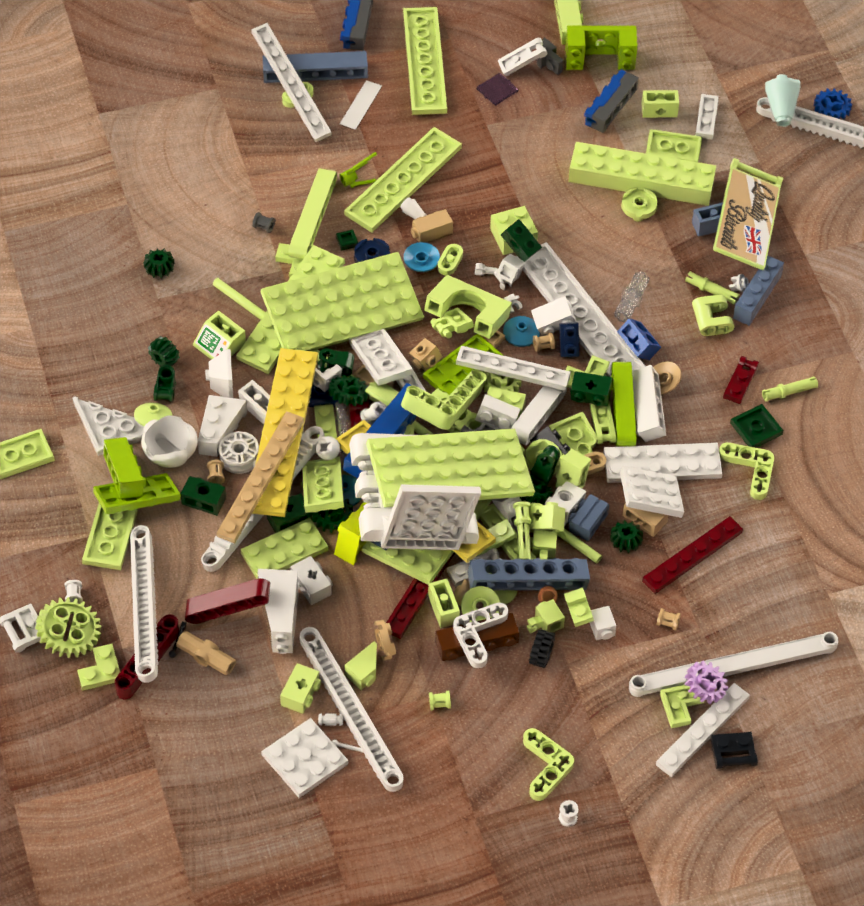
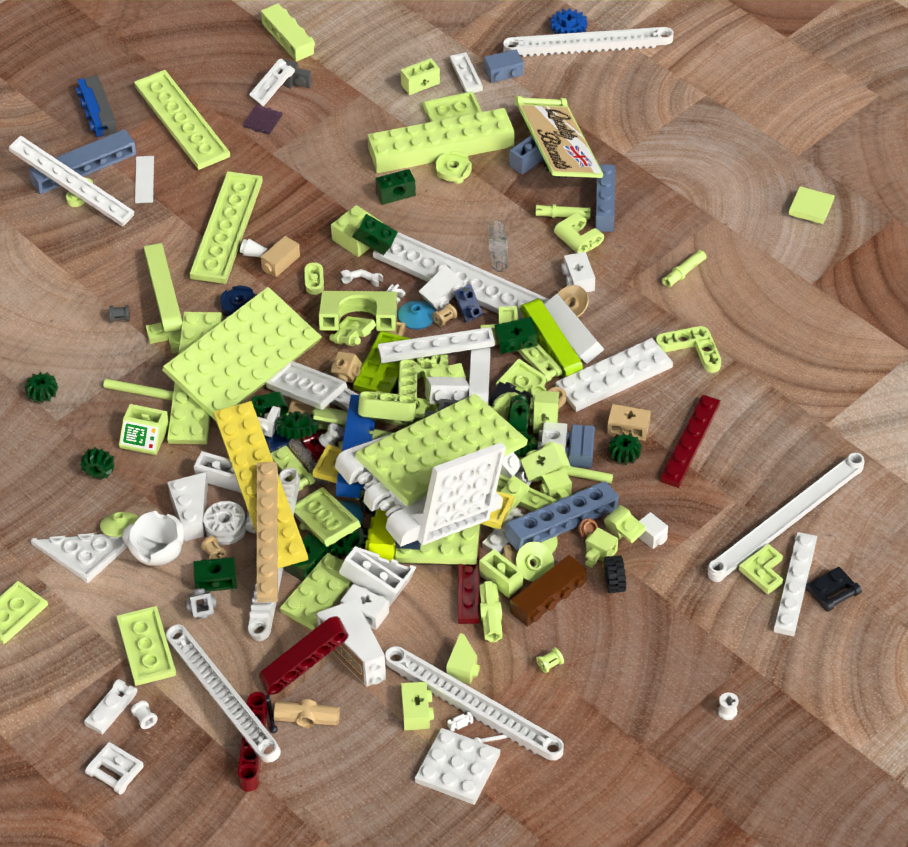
camera: 25 degrees left, 5 degrees down
(50, 622) = (146, 753): yellowish green gear -> none
(52, 573) = (110, 707): none -> white plate
(103, 672) = (217, 775): yellowish green plate -> none
(124, 468) = (126, 580): lime brick -> none
(158, 490) = (151, 598): lime plate -> none
(165, 387) = (116, 491): dark green piece -> none
(169, 518) = (204, 610): none -> light grey brick
(221, 374) = (166, 459): white slope -> none
(328, 448) = (303, 484): white piece -> none
(335, 556) = (376, 574): none -> white wedge
(346, 239) = (206, 299): dark green tile -> none
(349, 176) = (175, 243): lime plant -> none
(383, 639) = (467, 624): tan plate -> none
(415, 633) = (490, 611): none -> yellowish green piece
(424, 252) = (288, 285): dark azure dish -> none
(471, 631) = (544, 584): white beam -> none
(510, 268) = (376, 263): white brick -> none
(523, 521) = (530, 472): yellowish green pin -> none
(553, 760) = (684, 667): yellowish green beam -> none
(573, 201) = (395, 186): none -> dark green brick
(611, 100) = (374, 90): dark grey piece -> none
(617, 40) = (350, 37): lime plate -> none
(639, 339) = (529, 278): blue brick -> none
(651, 491) = (625, 400): white plate -> none
(668, 619) = (707, 506): tan bush -> none
(689, 352) = (578, 271): none -> white brick
(706, 682) = (777, 539): lavender gear -> none
(739, 283) = (583, 199): white plate -> none
(740, 380) = (637, 278): dark red plate -> none
(745, 123) = (503, 66): none -> sand blue brick
(756, 426) = (676, 310): dark green plate -> none
(782, 97) = (527, 30): light aqua cone -> none

